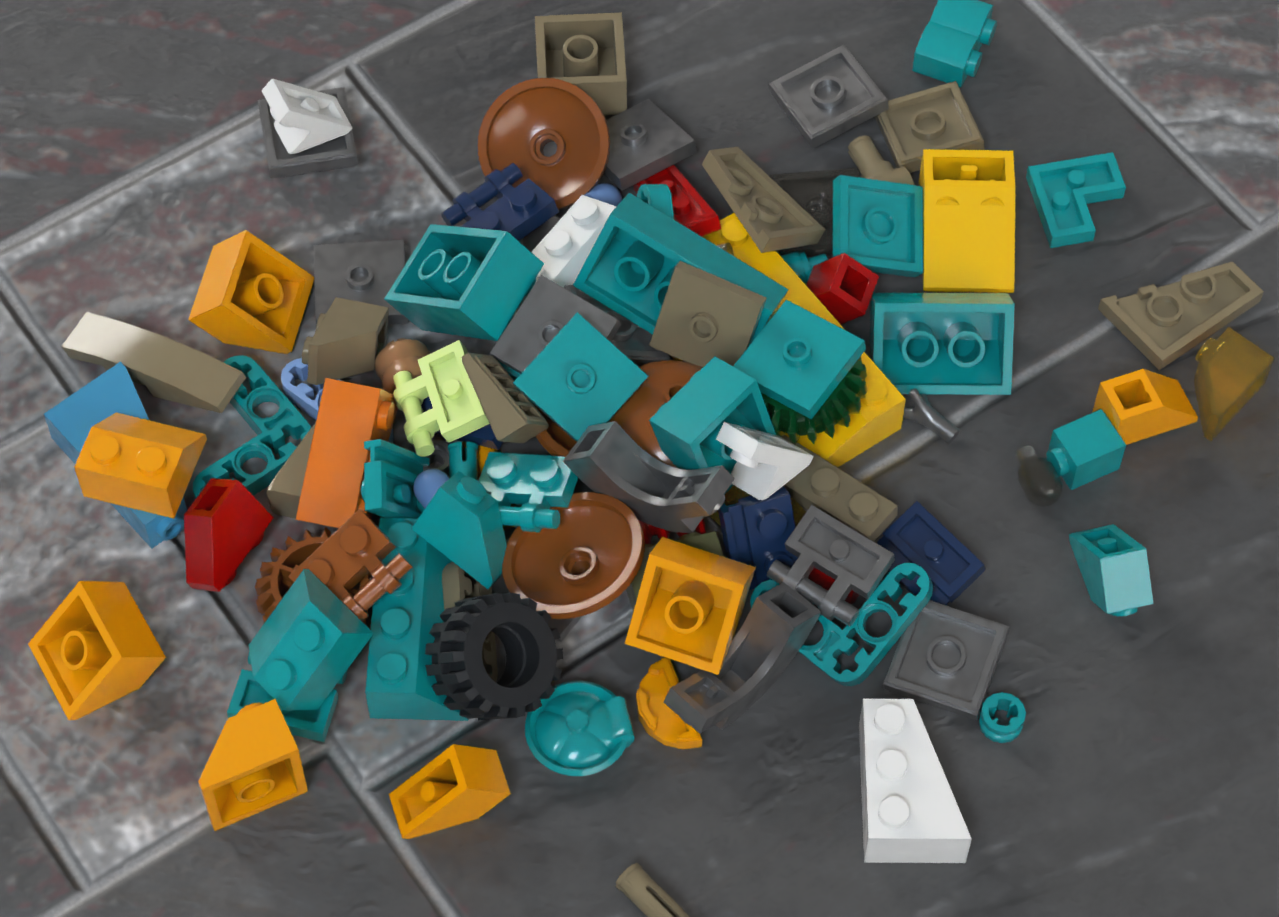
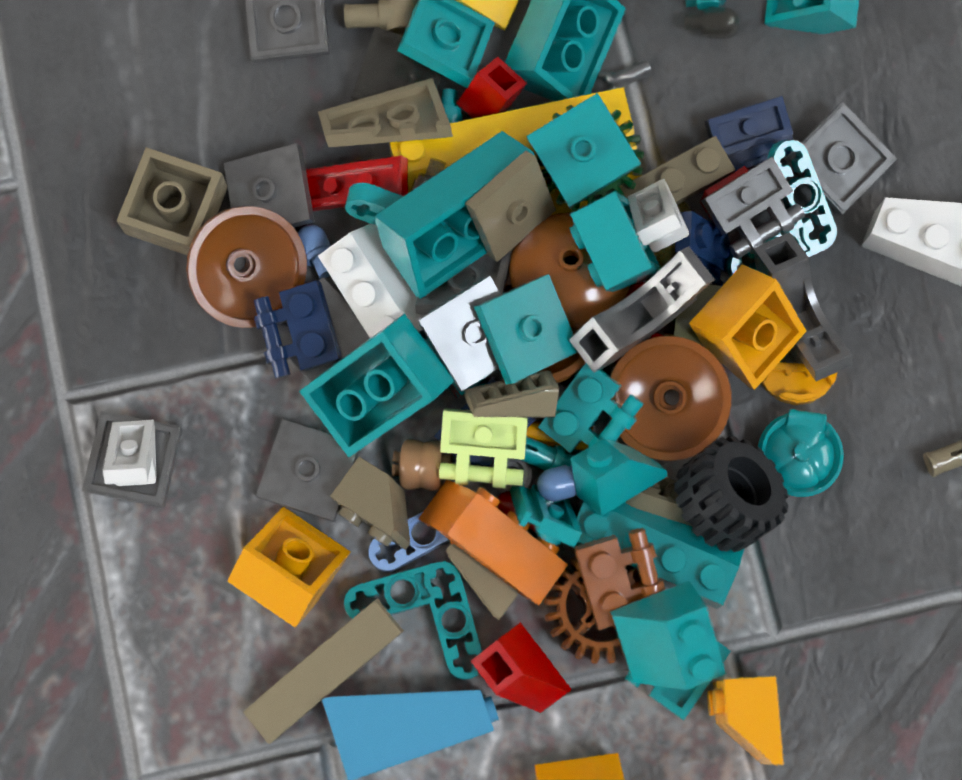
camera: 70 degrees left, 20 degrees up
(138, 463) = (438, 712): light orange slope -> none
(449, 791) = (816, 571): light orange slope -> none
(1004, 702) = (911, 135): teal bush -> none

